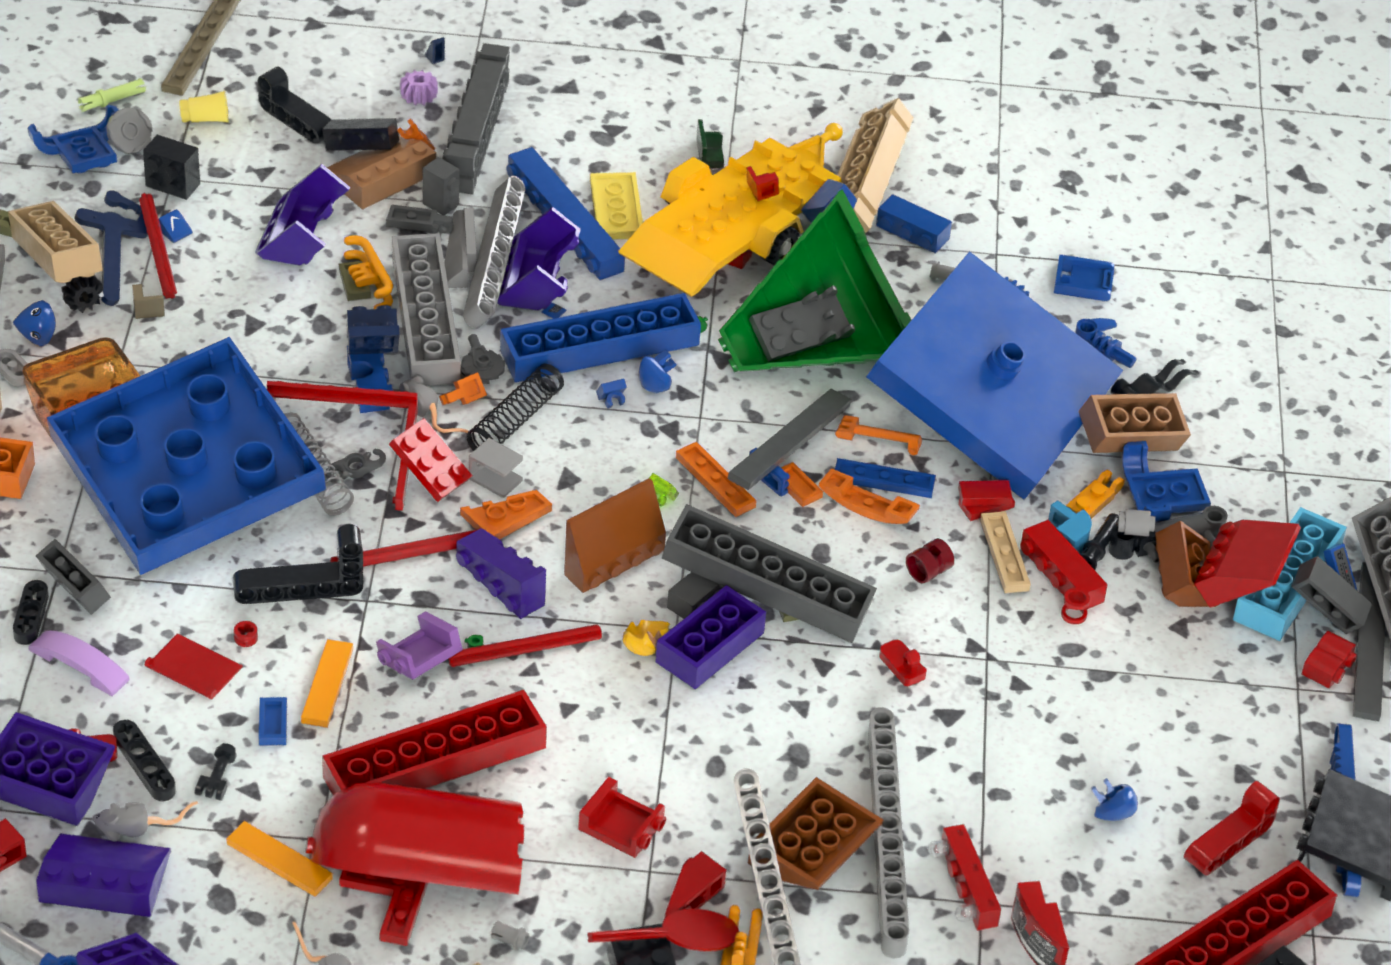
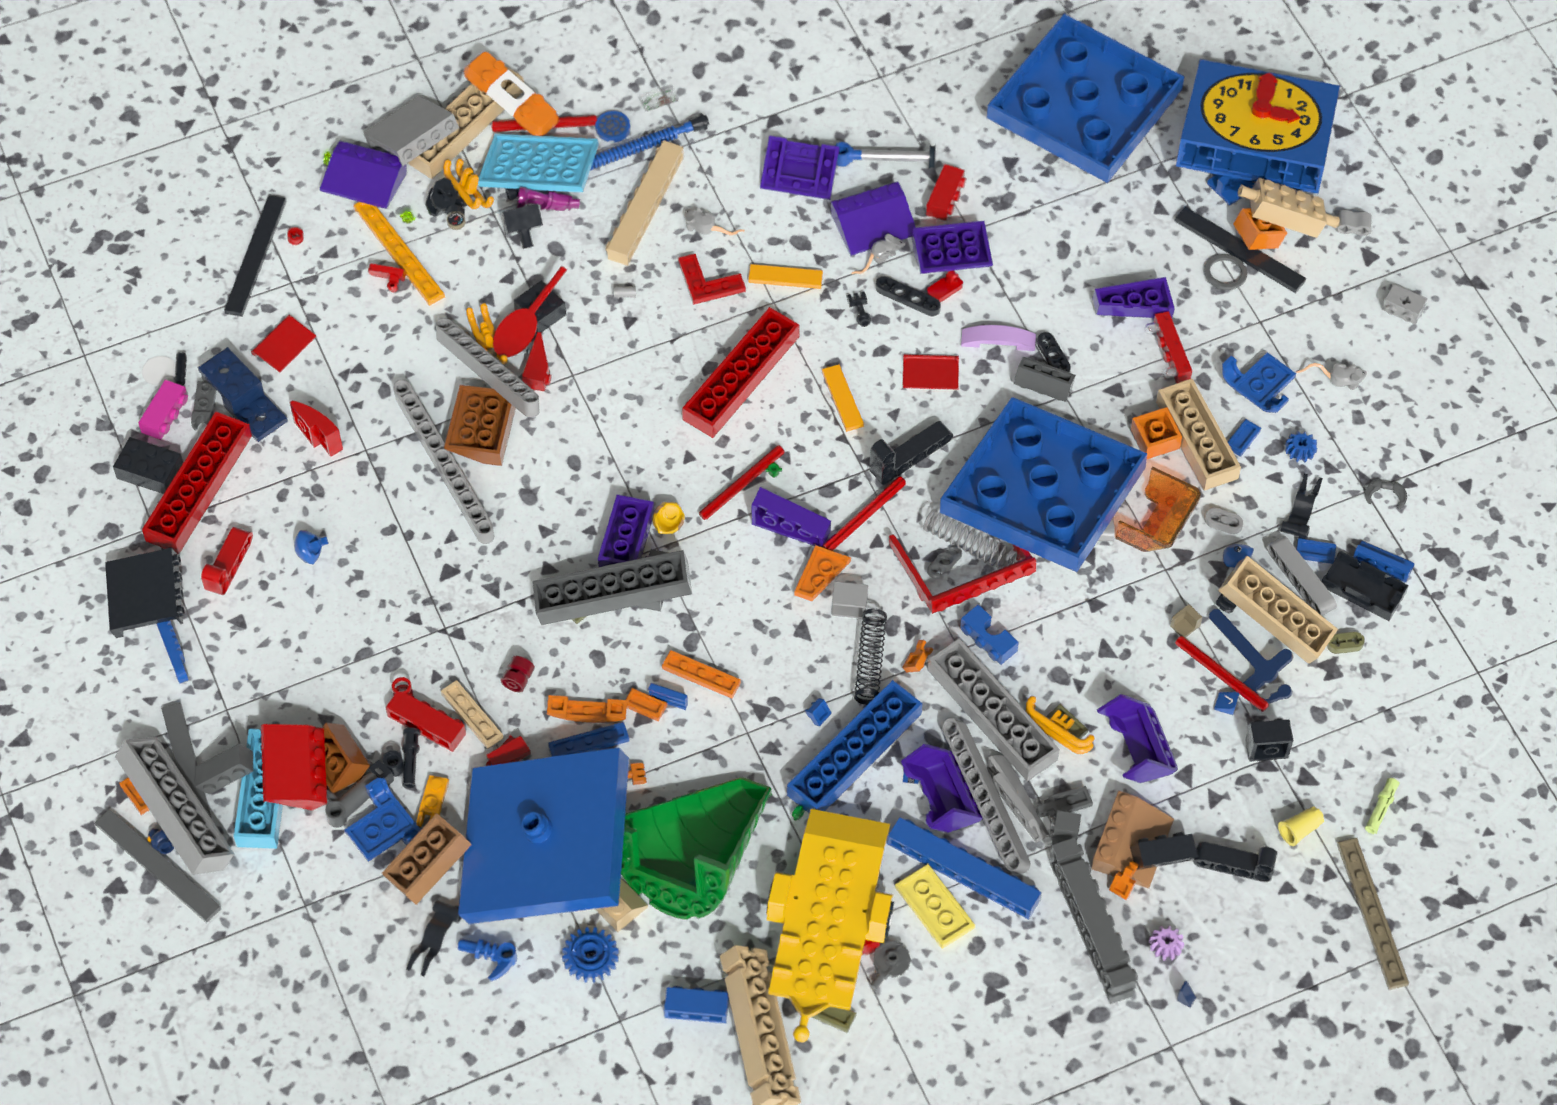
camera: 155 degrees right, 15 degrees up
(79, 148) = (1357, 739): blue piece -> none
(129, 130) = (1331, 764): light grey tile -> none
(240, 630) = (913, 410): red bush -> none
(273, 721) = (855, 357): blue tile -> none
(372, 330) = (1001, 641): dark blue bracket -> none
(421, 836) = (706, 307): red panel -> none
(423, 649) = (801, 438): medium lavender panel -> none
(426, 401) = (938, 635): light grey animal -> none
(430, 460) = (893, 573): plate -> none
(486, 363) = (925, 690): dark grey piece -> none
(614, 536) = (730, 571): dark orange slope -> none
(620, 819) = (605, 393): red panel -> none
(654, 372) = (796, 738): blue piece -> none
(664, 489) = (731, 645): clear neon green tile -> none
(710, 147) = (904, 1007): dark green panel -> none
(764, 185) = (817, 925): red panel -> none
(789, 439) = (666, 723): dark grey tile -> none
(801, 325) = (717, 830): dark grey hinge -> none
(824, 196) = (757, 948): blue torso -> none
(903, 662) = (497, 592): red piece -> none
(940, 271) = (646, 967): light grey pin -> none
(970, 877) = (377, 453): red piece -> none
(1072, 526) = (431, 755): dark azure brick -> none
(1087, 280) = (533, 1026): blue container -> none
(1136, 522) = (385, 760): light grey brick -> none
(1329, 660) = (211, 733): red brick -> none
(1338, 560) = (227, 803): tile -> none

